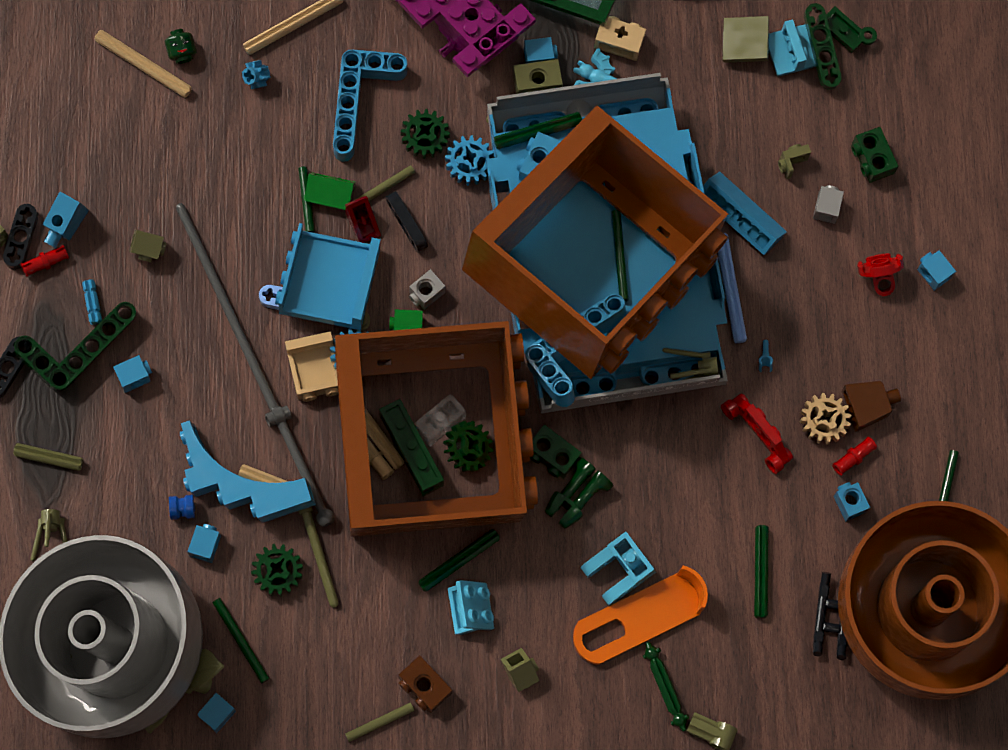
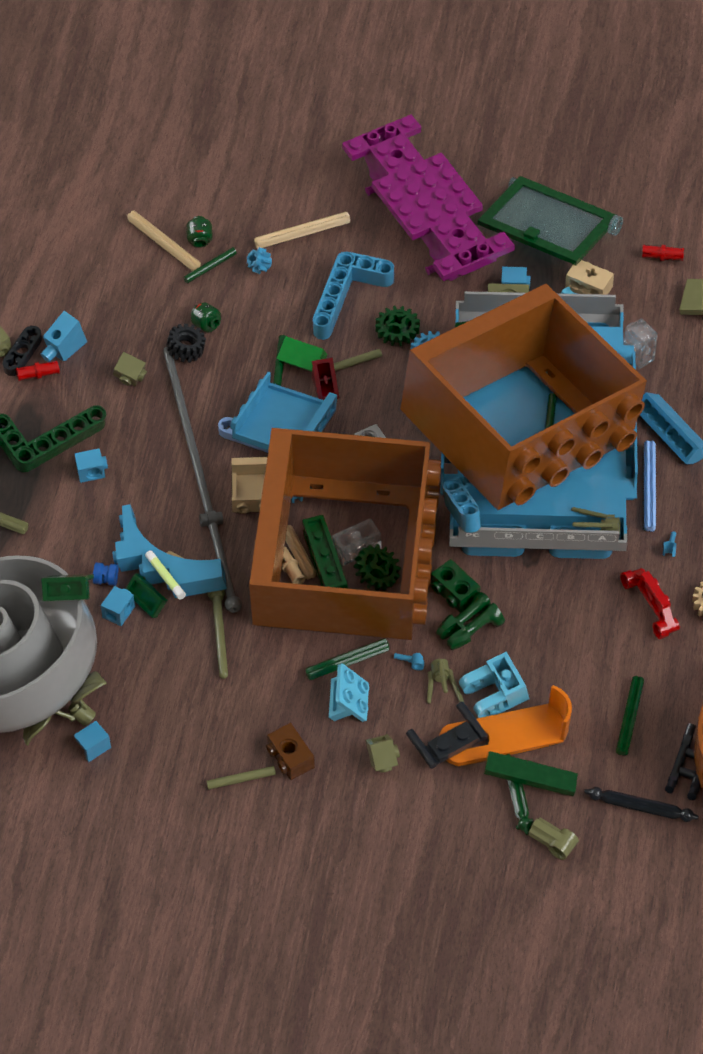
camera: 20 degrees right, 20 degrees down
(92, 302) = (70, 404): dark azure axle -> none
(160, 576) = (66, 587): none -> dark green panel
(200, 209) = (186, 334): none -> black tyre
(201, 87) = (210, 265): none -> dark green bar
(214, 159) = (205, 317): none -> dark green head
(230, 525) = (146, 595): none -> dark green tile
(240, 640) = (130, 689): dark green bar -> none
(249, 507) = (167, 577): none -> yellowish green bar
(285, 576) = (178, 637): dark green gear -> none
(406, 221) = (364, 389): black beam -> none
(531, 548) = (416, 659): none -> dark azure hand
(559, 559) = (440, 672): none -> olive plant
(589, 642) = (452, 741): none -> black plate
(675, 663) = (531, 773): none -> dark green tile
(691, 114) = (644, 341): none -> clear brick
(791, 673) = (641, 804): none -> black wheel

